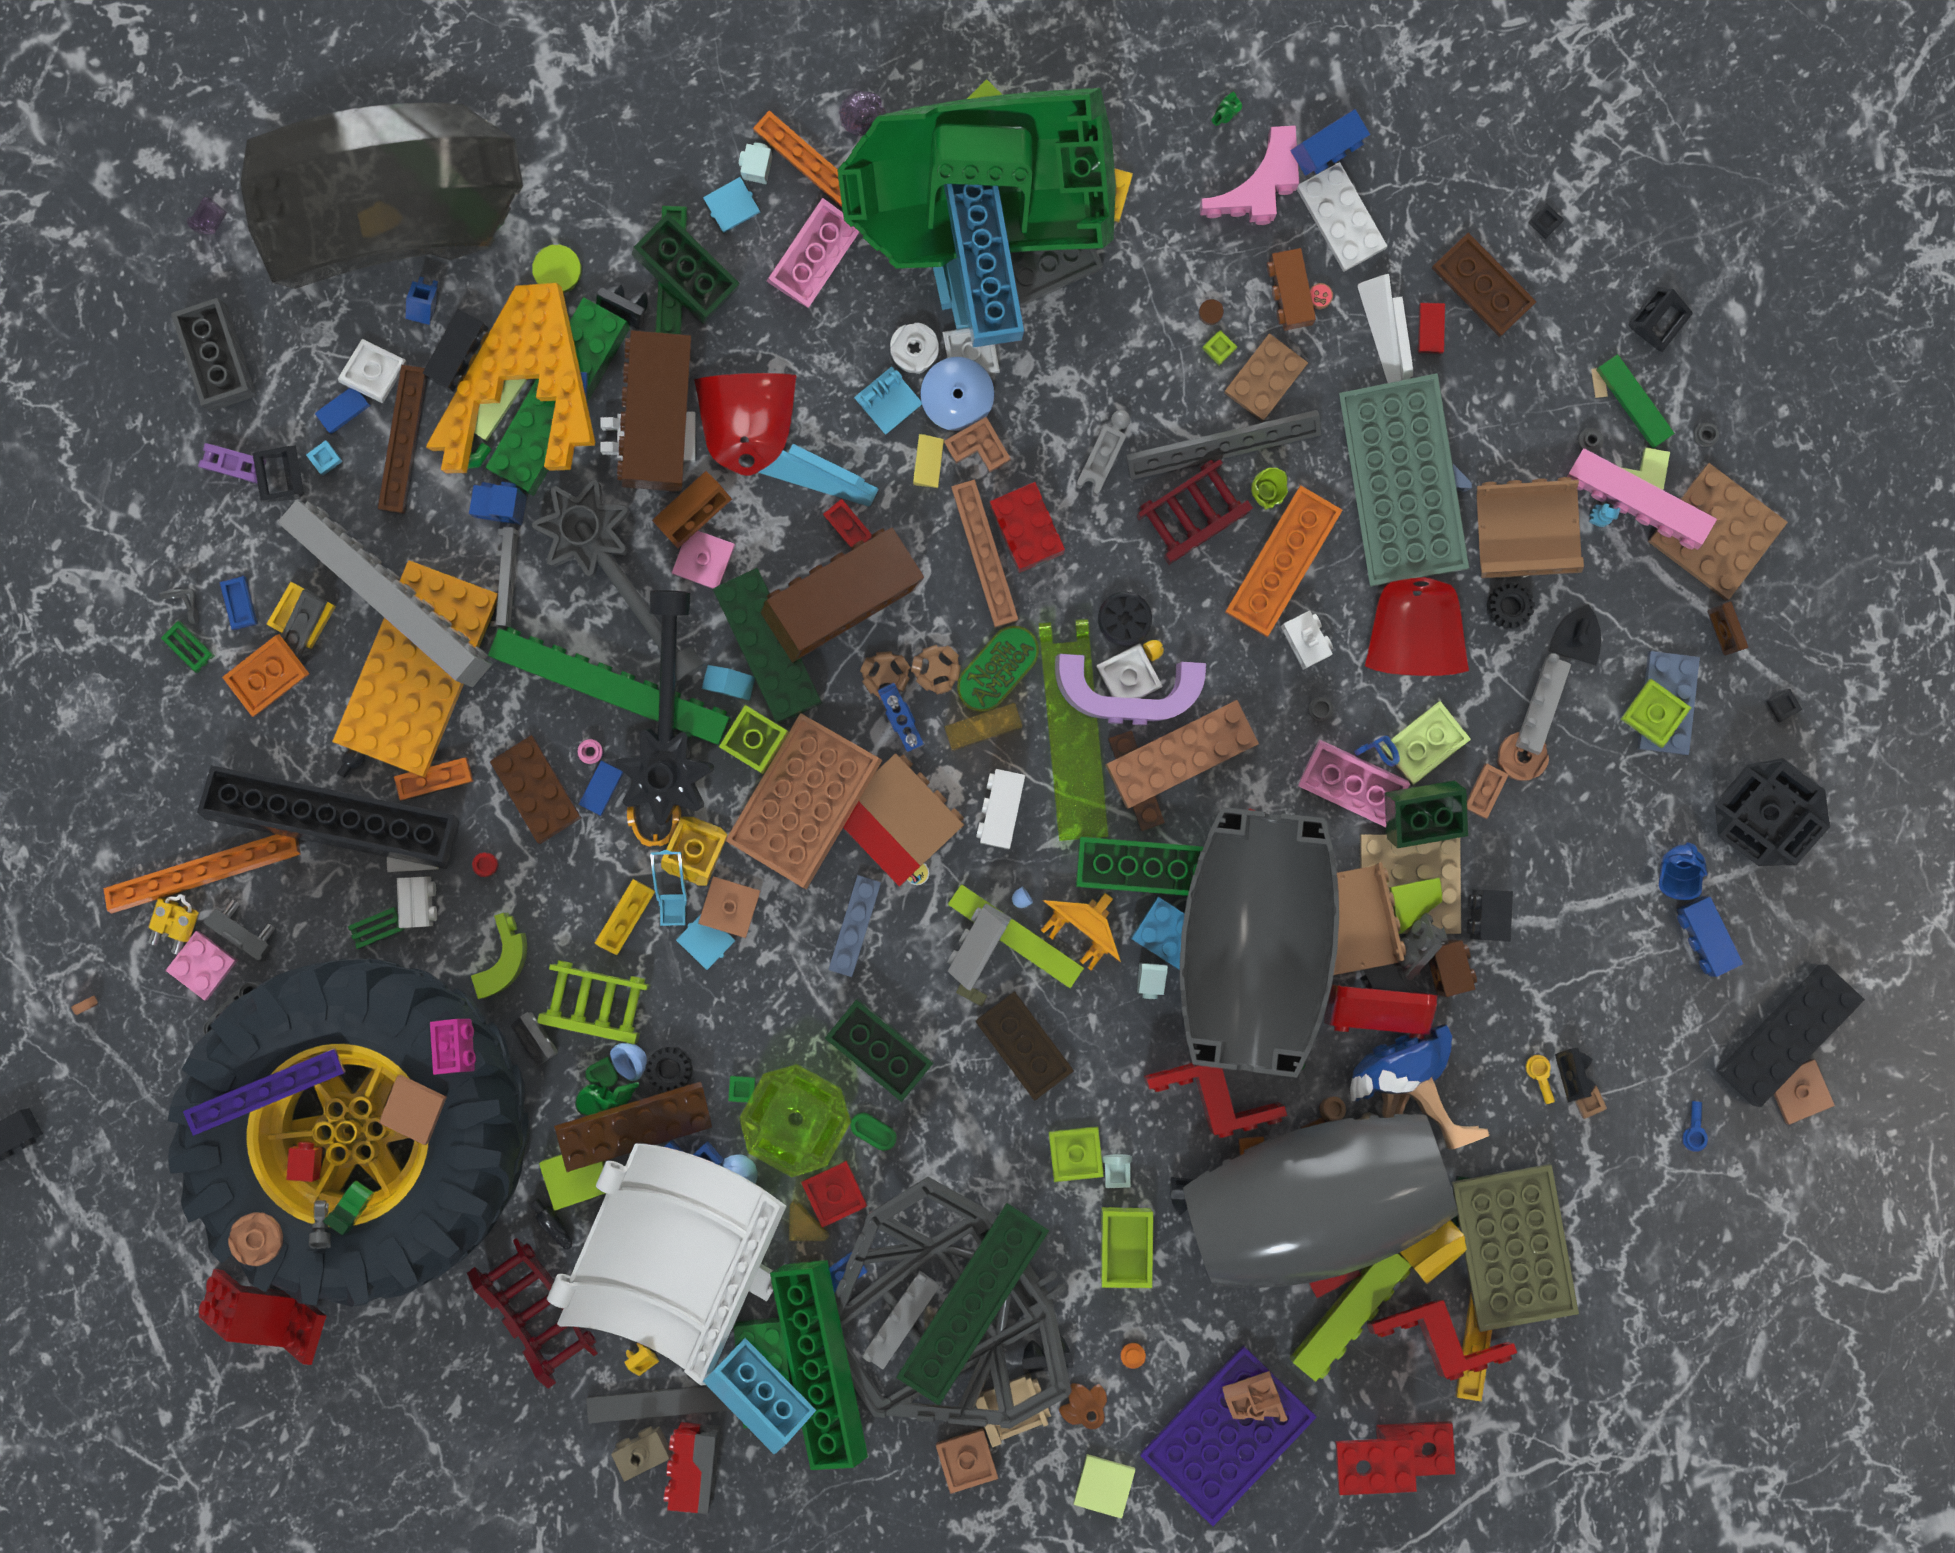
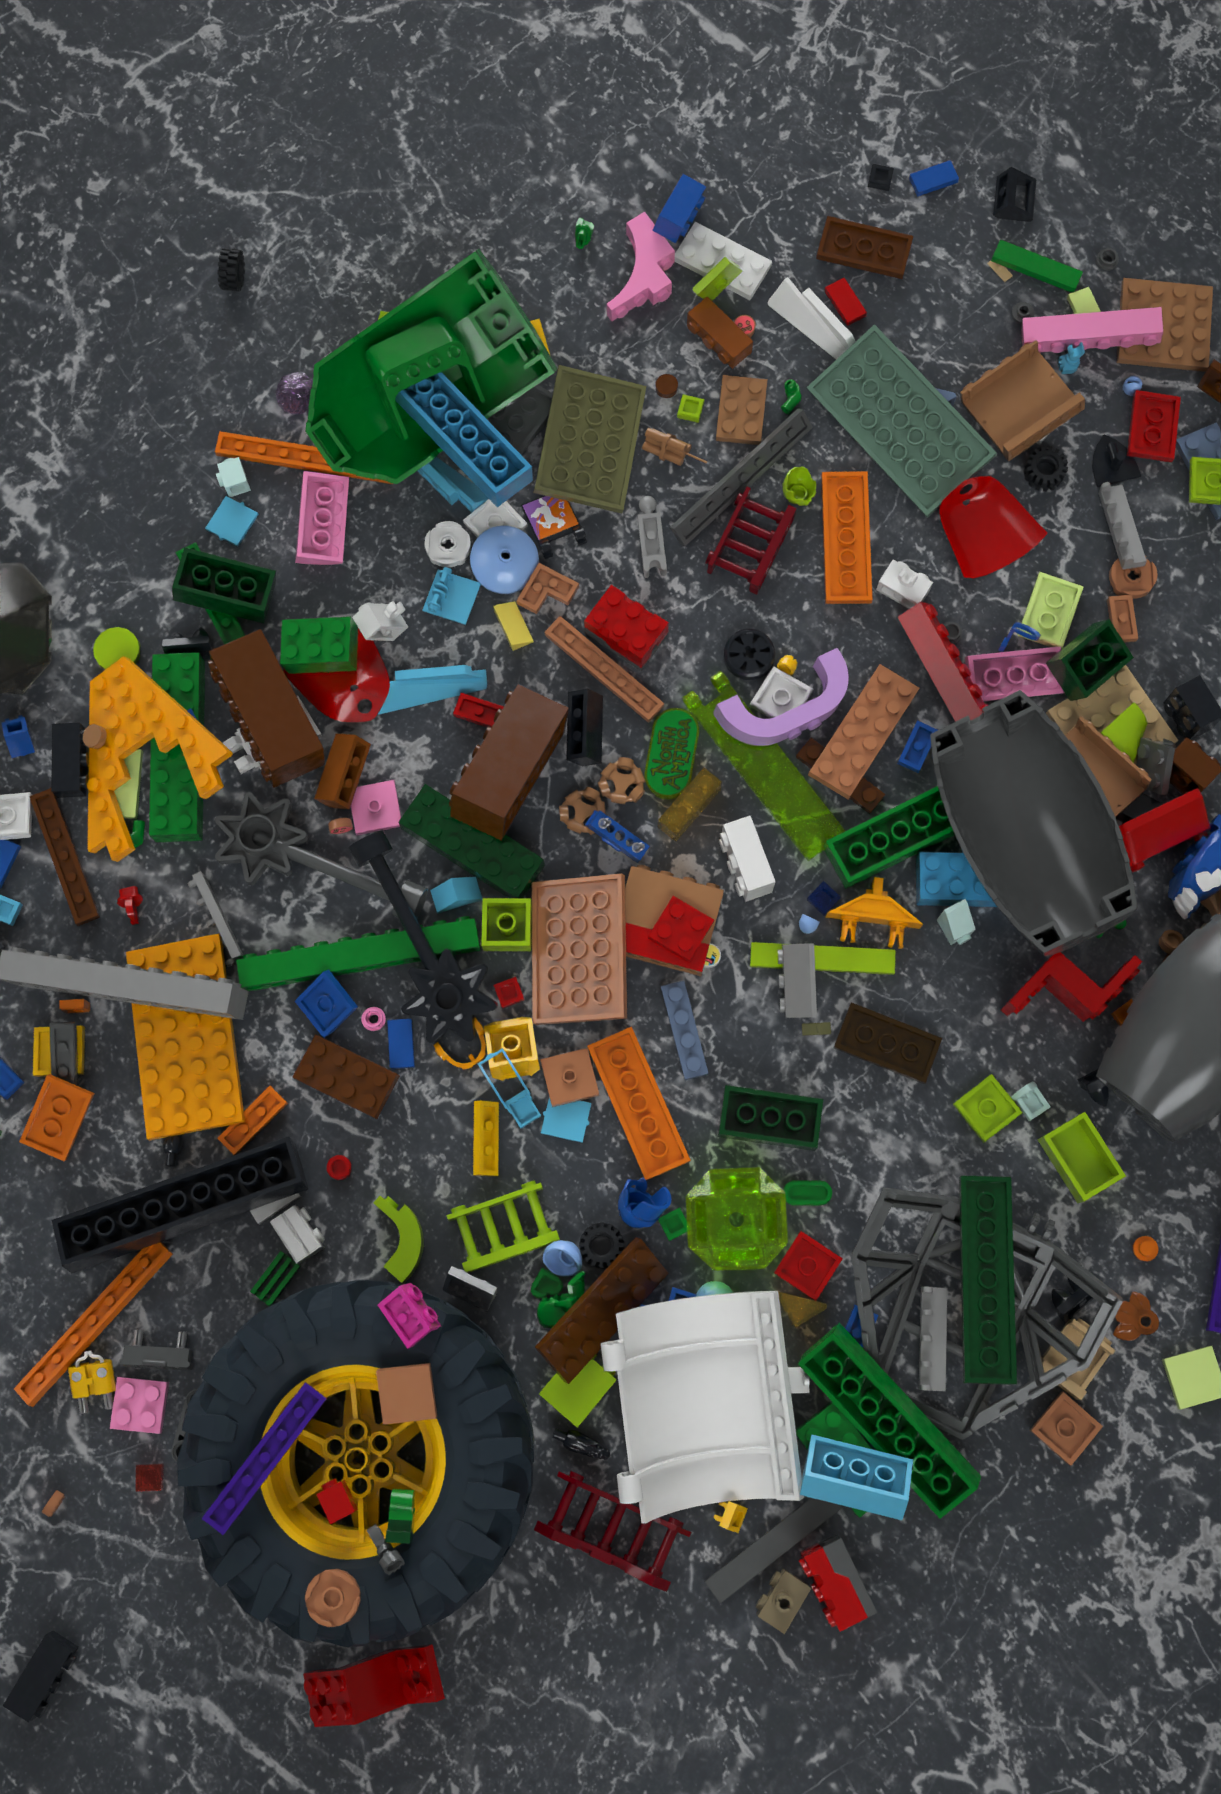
camera: 30 degrees left, 10 degrees down
(176, 1031) = (149, 1477): none -> clear red plate
(336, 583) = (74, 1006): none -> orange tile
(438, 514) = (130, 900): none -> red piece
(488, 344) = (94, 736): none -> medium nougat tile
(498, 503) = (176, 860): blue brick -> none
(555, 714) = (326, 1003): none -> blue plate
(661, 558) = (336, 825): none -> nougat tile
(721, 1058) = (638, 1207): none -> blue helmet
(722, 799) = (509, 992): none -> red tile
(736, 380) = (319, 645): none -> green brick
(775, 966) = (638, 1103): none -> orange plate
(806, 388) = (381, 621): none -> white brick
(903, 837) = (681, 928): none -> red plate
(932, 599) = (584, 727): none -> black brick
(1025, 380) = (551, 520): none -> flag
(1049, 883) = (823, 898): none -> clear blue plate
(1105, 324) = (590, 439): none -> olive plate
(1173, 373) = (667, 447): none -> medium nougat piece
(1221, 796) = (917, 747): none -> blue plate
(1292, 741) = (942, 661): none -> red brick
(1319, 238) = (717, 279): none -> lime plate
(1322, 393) = (793, 396): none -> green arm
(1596, 253) = (933, 178): none -> blue tile
(1638, 625) = (1153, 426): none -> red plate
(1644, 577) = (1130, 388): none -> light blue hinge

